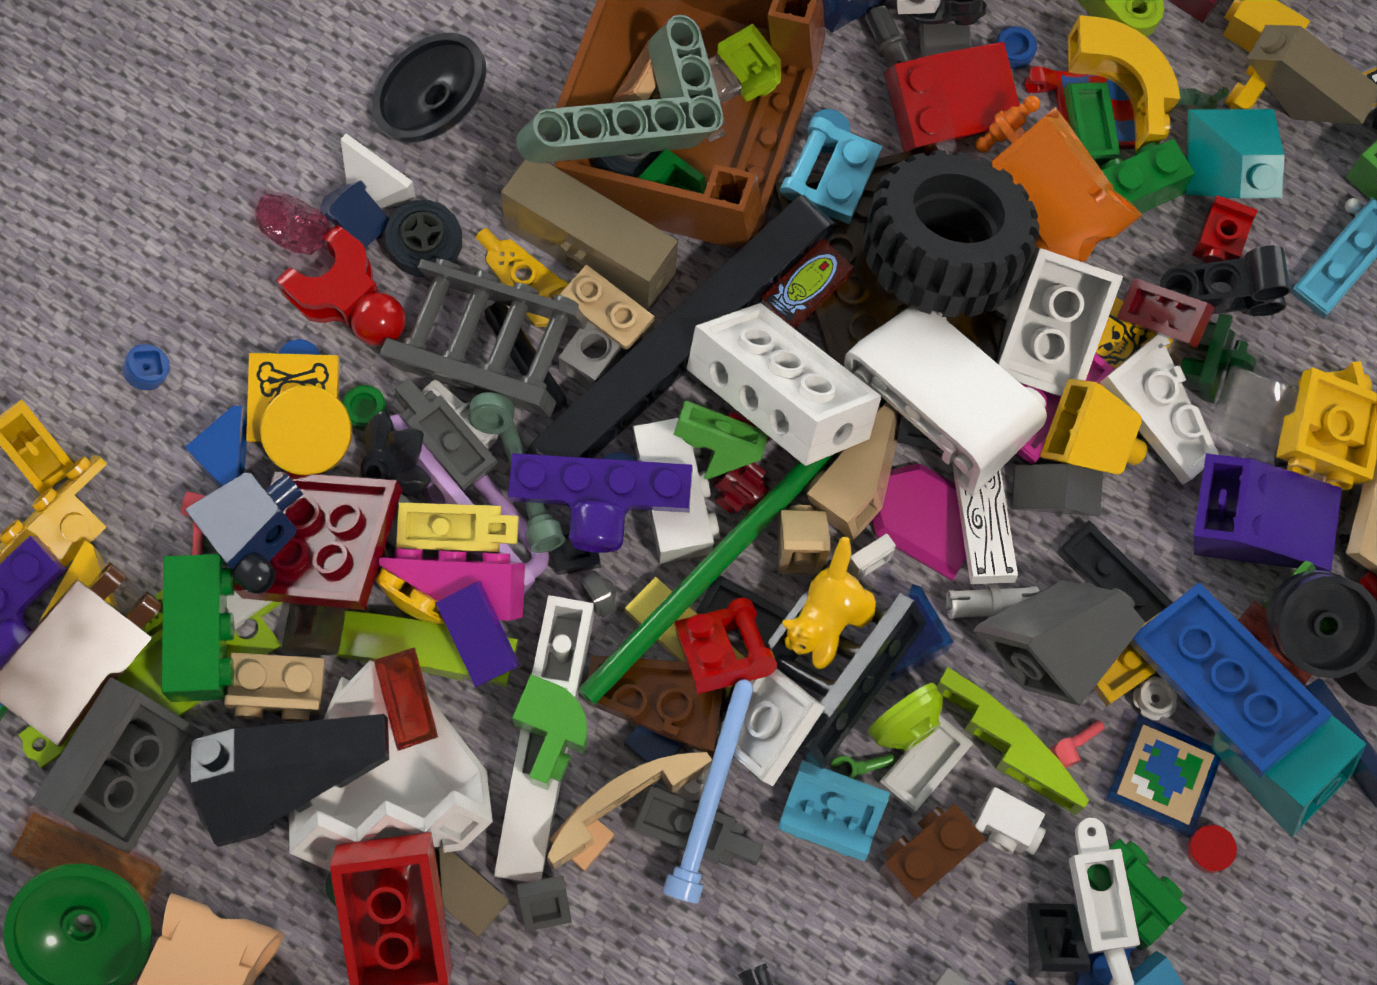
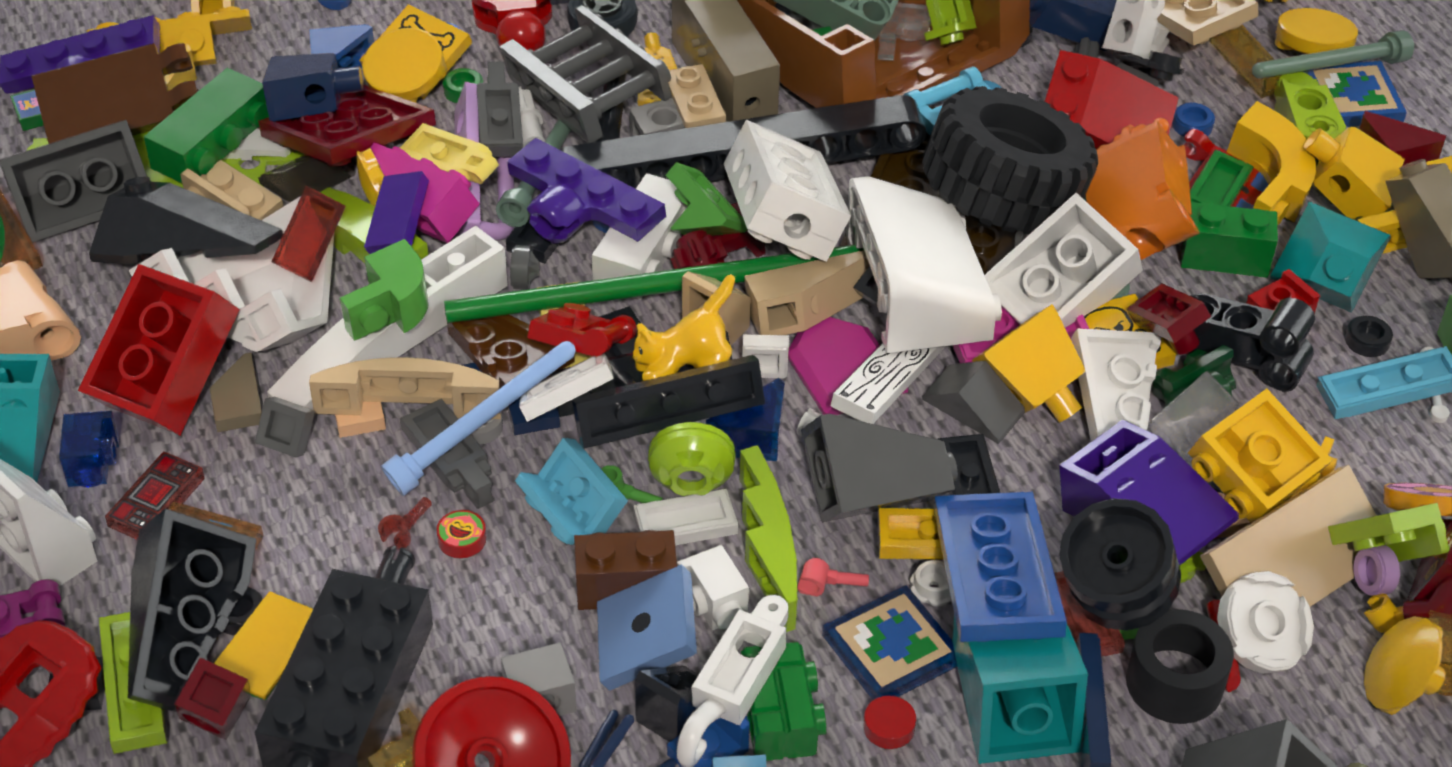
camera: 40 degrees right, 25 degrees down
(254, 574) = (275, 101): black hinge -> none
(394, 454) = (452, 101): black plate -> none
(491, 413) = (545, 113): sand green tile -> none
(714, 919) = (403, 524): none -> clear red hand
(767, 902) = (461, 534): none -> tile
(808, 284) = (878, 160): tile -> none
(991, 900) = (646, 627): none -> medium blue tile
(1199, 45) = (1353, 171): none -> yellow torso
(1299, 214) = (1368, 336): none -> black tile

